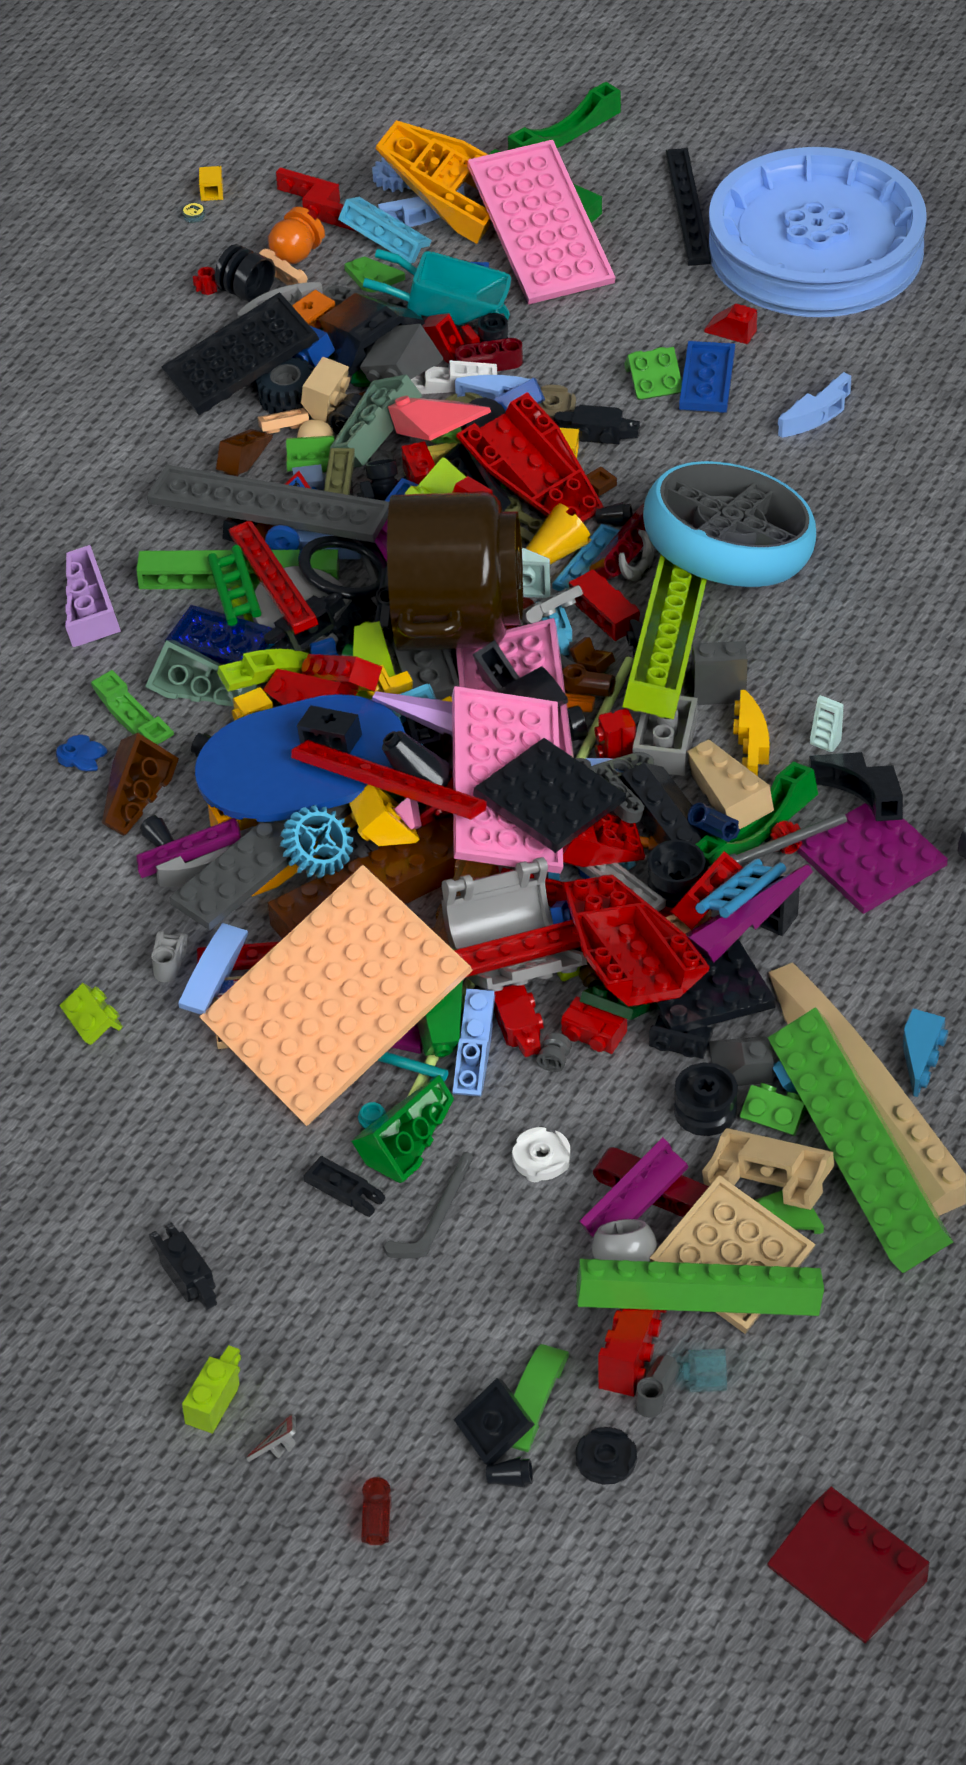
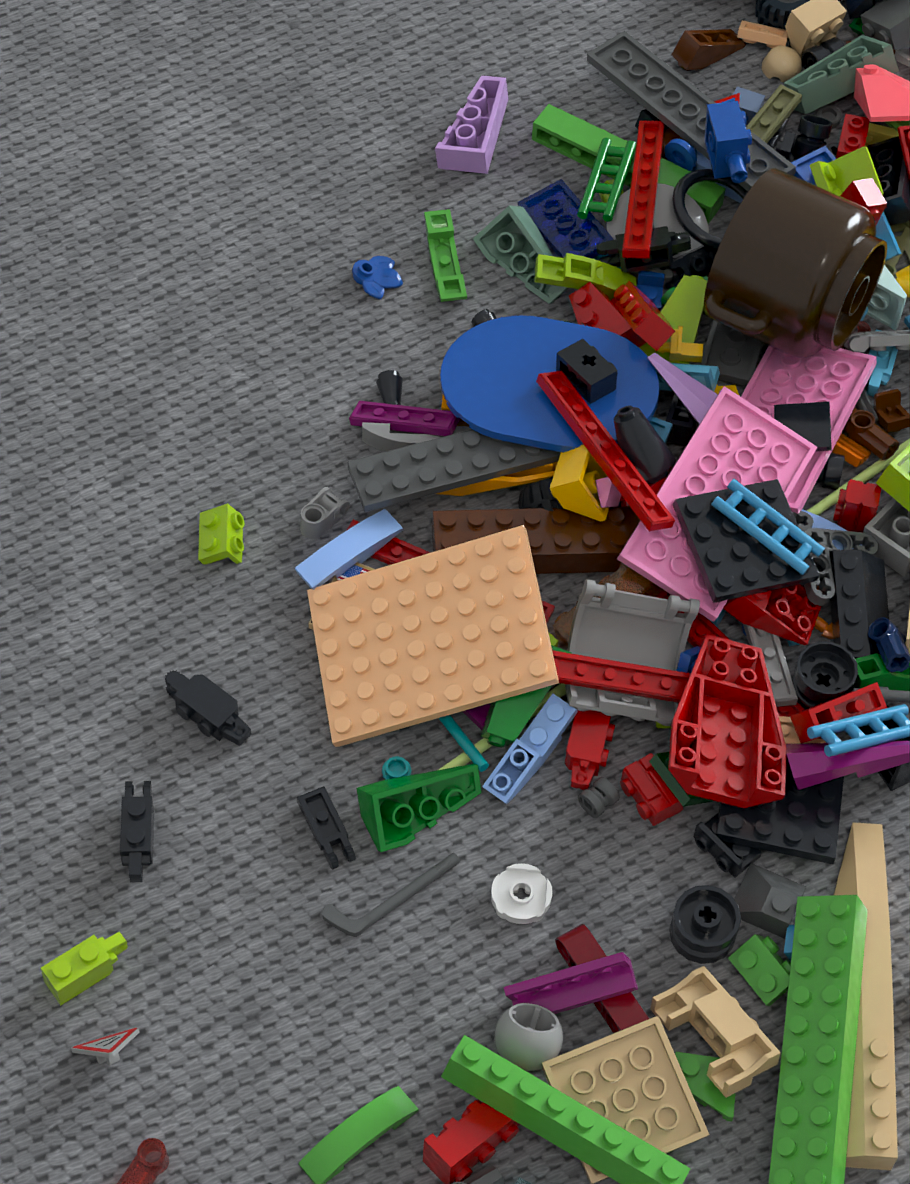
camera: 25 degrees right, 10 degrees up
(135, 778) = (405, 325): reddish brown wedge -> none
(176, 1146) = (207, 706): none -> black hinge
(250, 703) = (551, 305): yellow brick -> none
(308, 451) = (762, 76): bright green bracket -> none
(324, 504) = (727, 140): none -> blue brick
(335, 849) = (500, 465): medium azure gear -> none
(494, 667) = (787, 380): black slope -> none
(494, 1422) = (300, 1144): black plate -> none
(572, 783) = (771, 542): none -> dark azure bar

